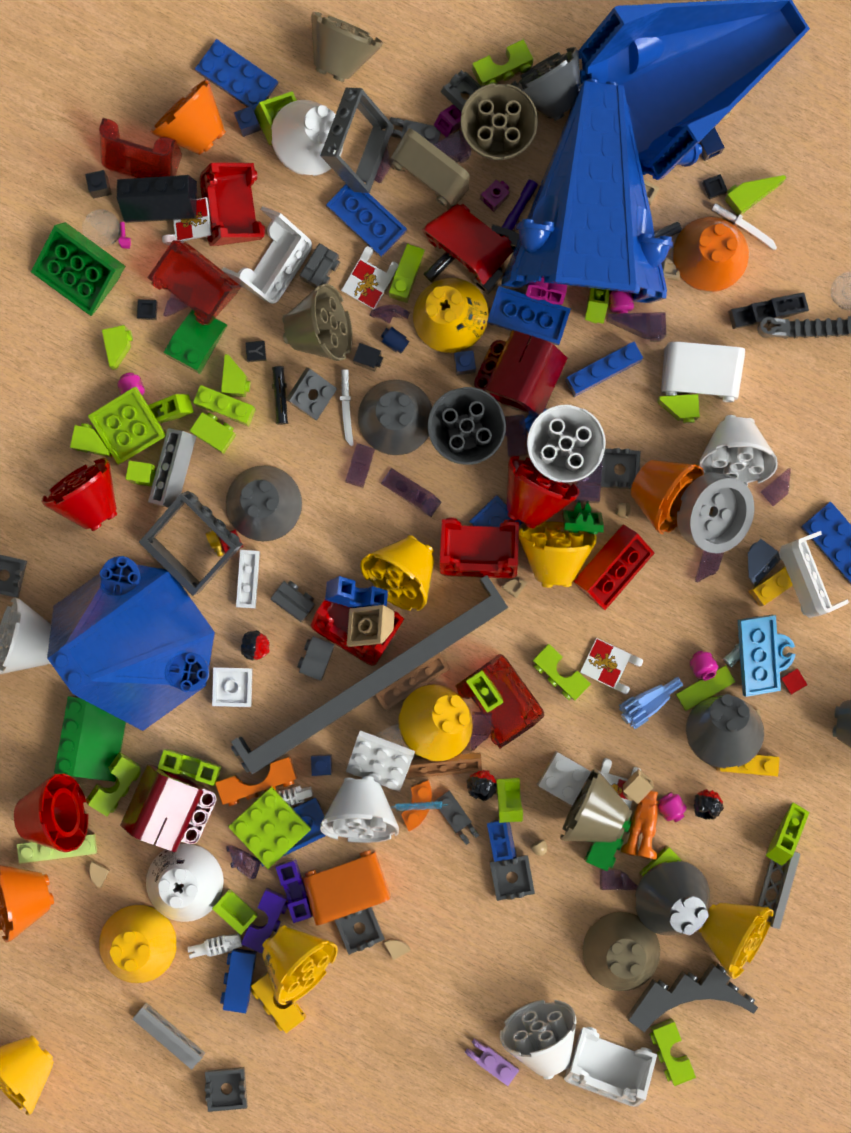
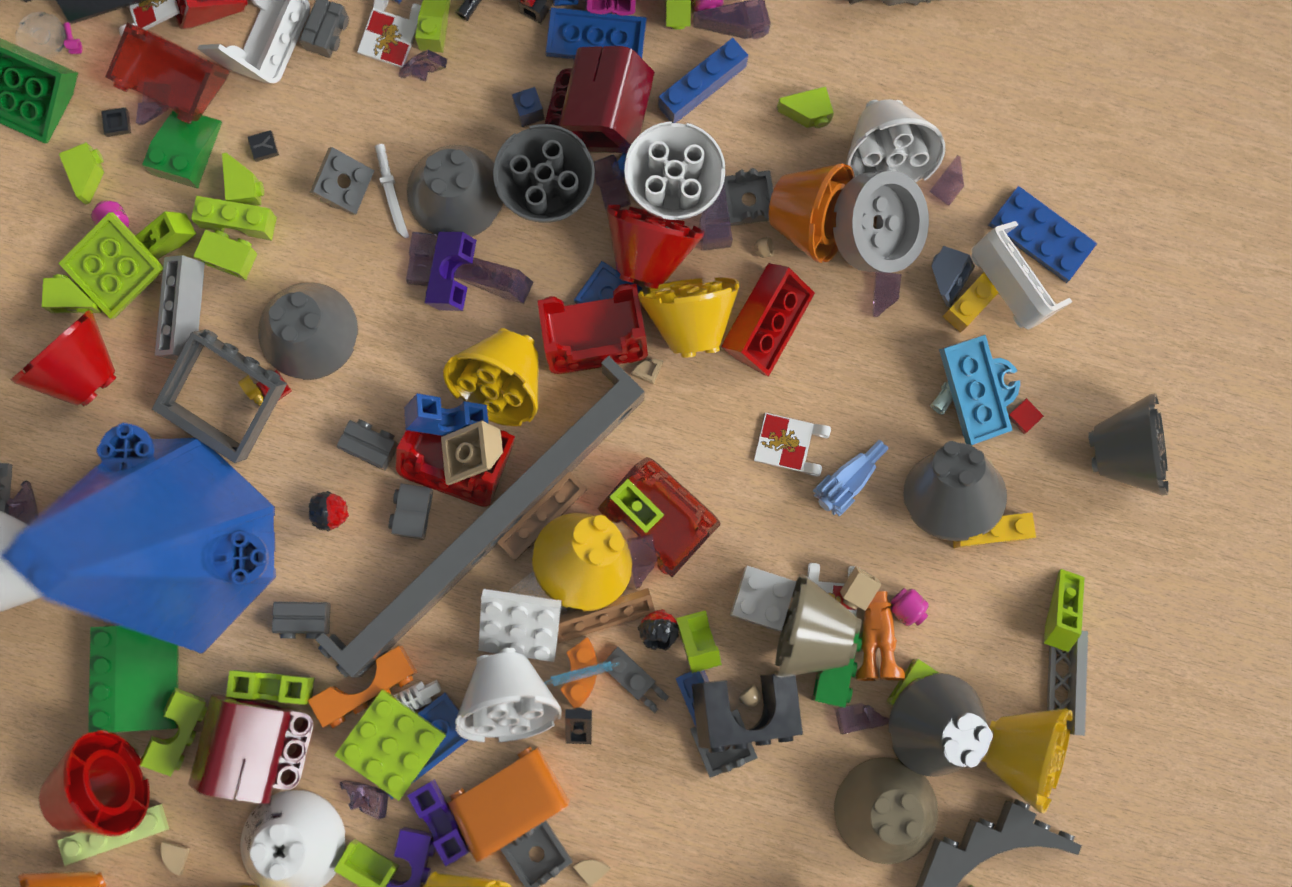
camera: 20 degrees left, 5 degrees down
(30, 594) = (23, 504): none -> slope
(141, 473) = (138, 320): lime panel -> none
(220, 721) = (301, 618): none -> dark grey brick
(232, 687) = (309, 571): white plate -> none
(248, 579) = (304, 429): white plate -> none
(278, 372) = (296, 166): black pin -> none
(320, 325) = (334, 91): dark tan cone -> none
(321, 765) = (444, 648): dark blue brick -> none
(368, 357) = (405, 124): black brick -> none
(382, 466) = (450, 252): none -> dark purple arch
(394, 340) = (435, 97): dark blue brick -> none
(408, 843) = (578, 726): none -> black plate
(450, 315) = (498, 53): yellow cone -> none
(510, 866) = (718, 728): none -> black arch
(547, 662) = (709, 456): lime arch -> none
(583, 520) = (716, 266): green piece -> none
(702, 370) = (824, 54): white windscreen -> none
(703, 665) = (908, 418): dark pink head -> none
(704, 689) = (916, 447): lime tile -> none
(708, 804) = (955, 594): black piece -> none

